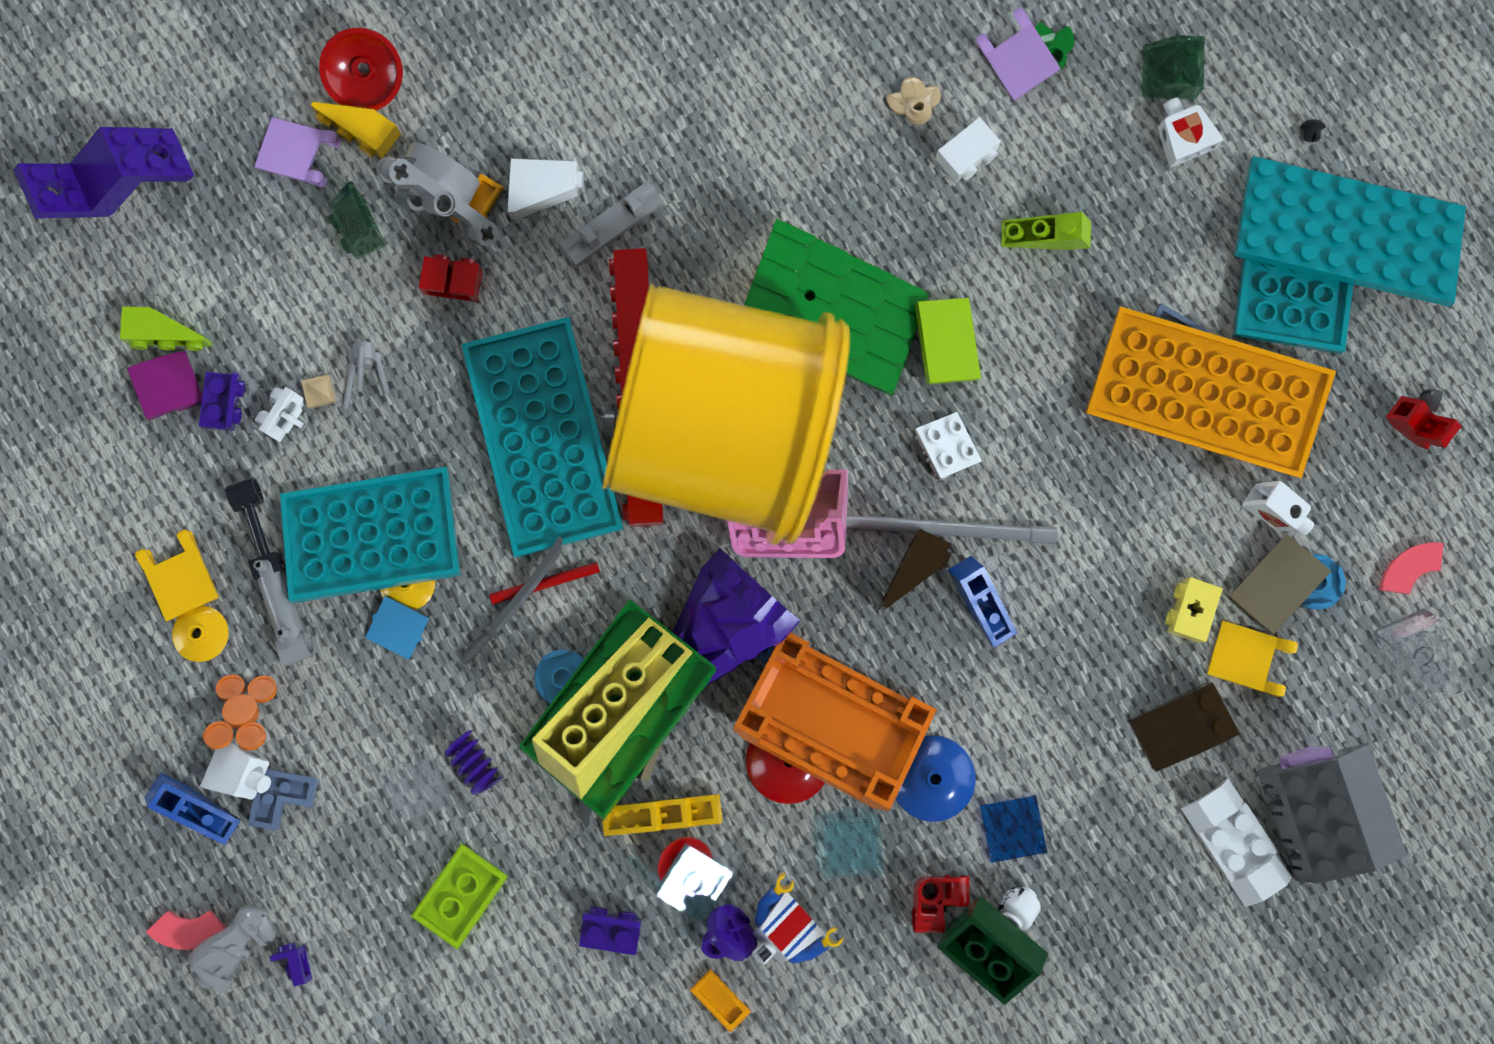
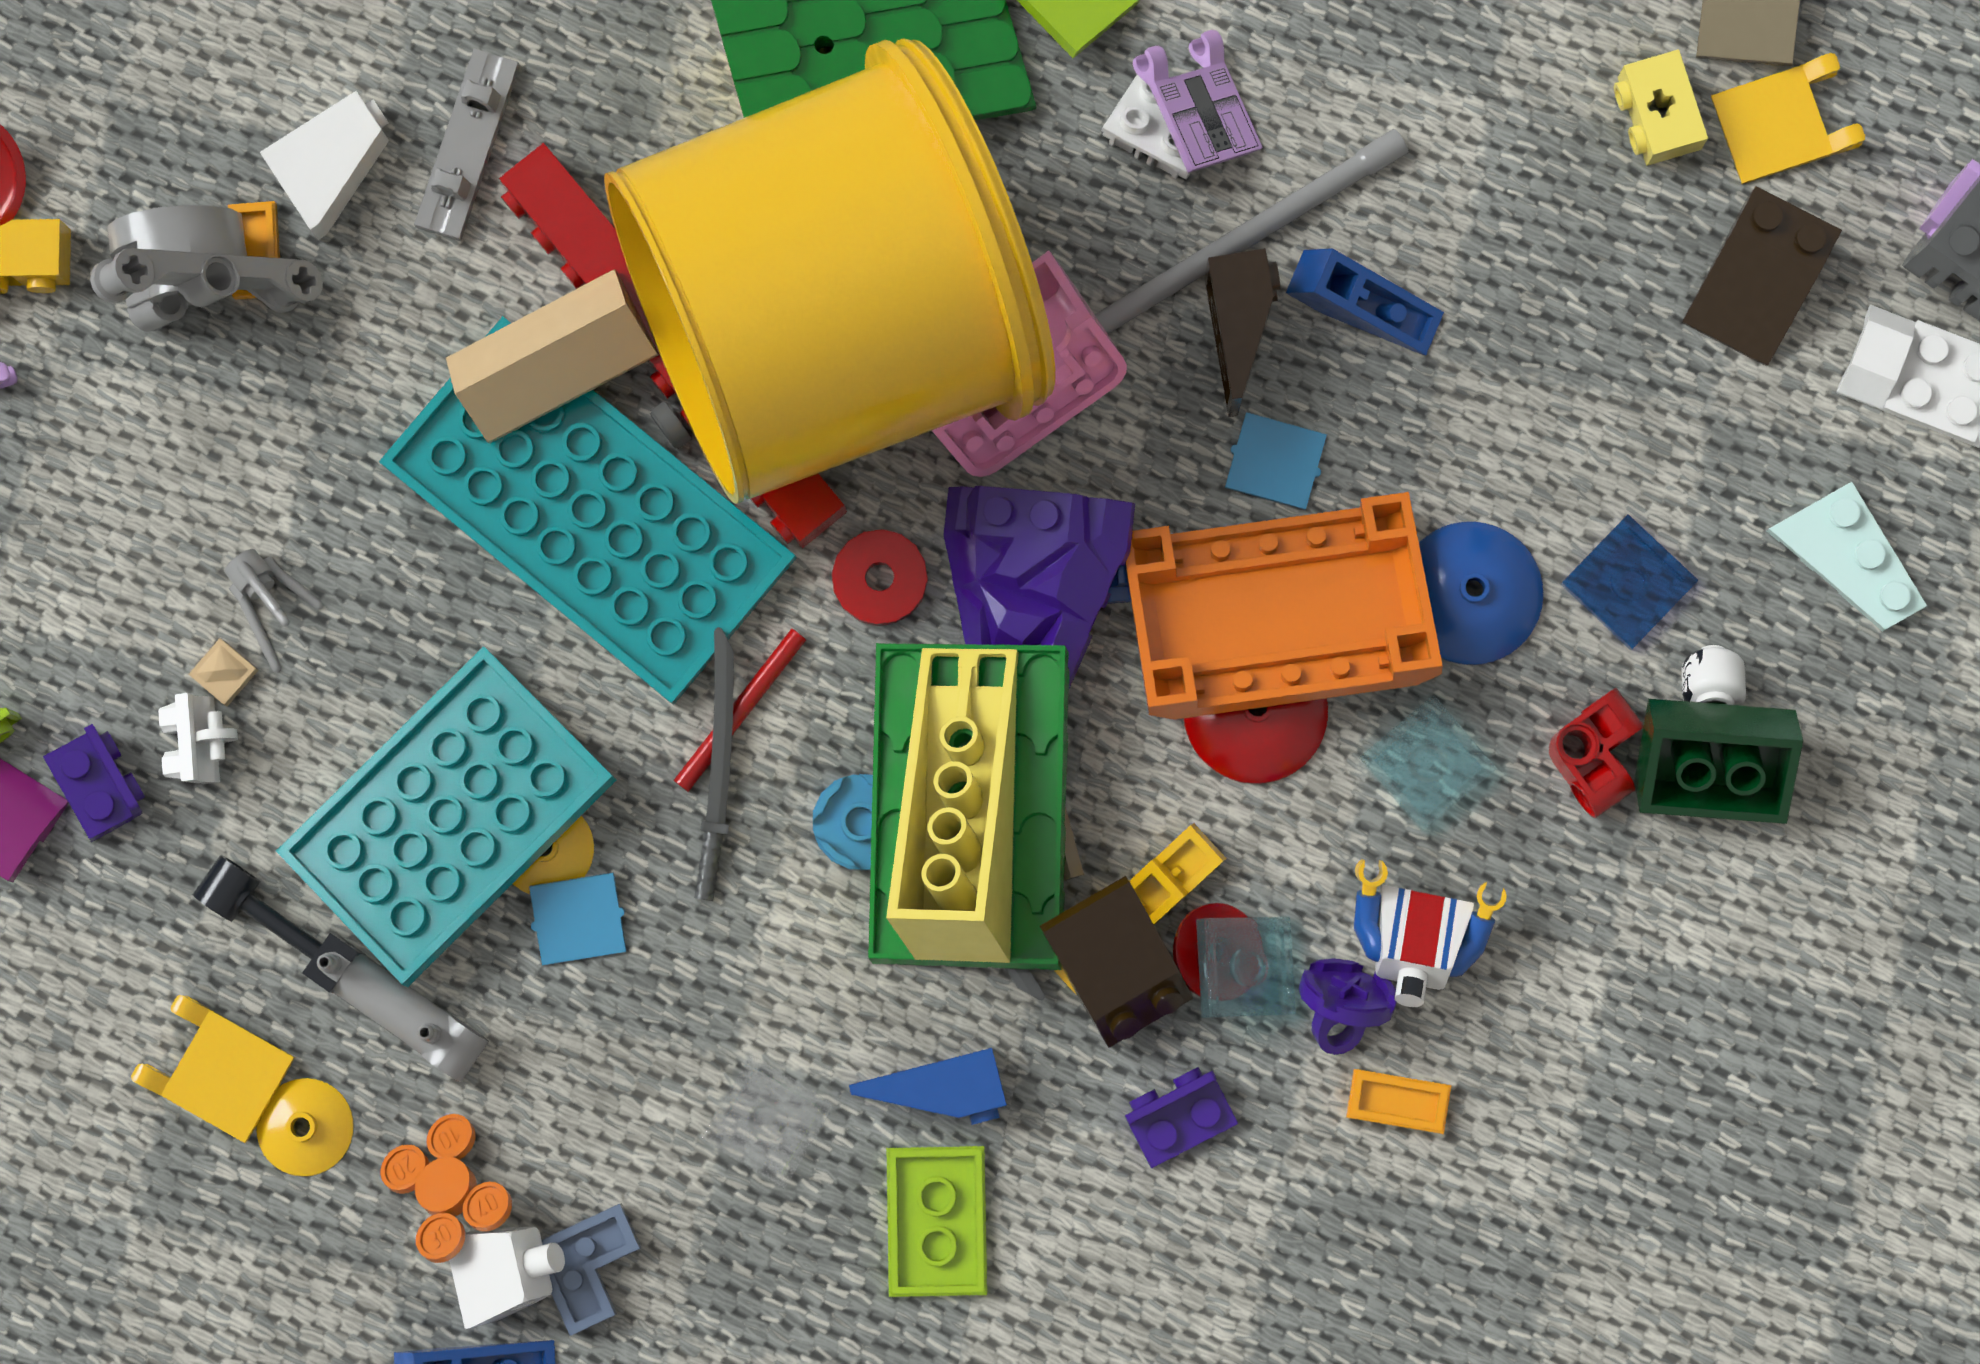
camera: 25 degrees left, 0 degrees up
(356, 222) = (102, 396): clear green slope -> none
(451, 279) = (296, 381): red piece -> none
(472, 764) = (822, 1026): dark purple piece -> none
(509, 836) = (949, 1087): none -> blue slope
(574, 351) = (550, 357): none -> tan slope
(630, 837) = (1116, 962): none -> dark brown slope
(651, 551) = (873, 549): none -> red tile
(885, 647) = (1275, 461): none -> dark azure piece
(971, 452) = (1200, 105): none -> lavender flag
(1131, 894) = (1852, 554): none -> light aqua wing

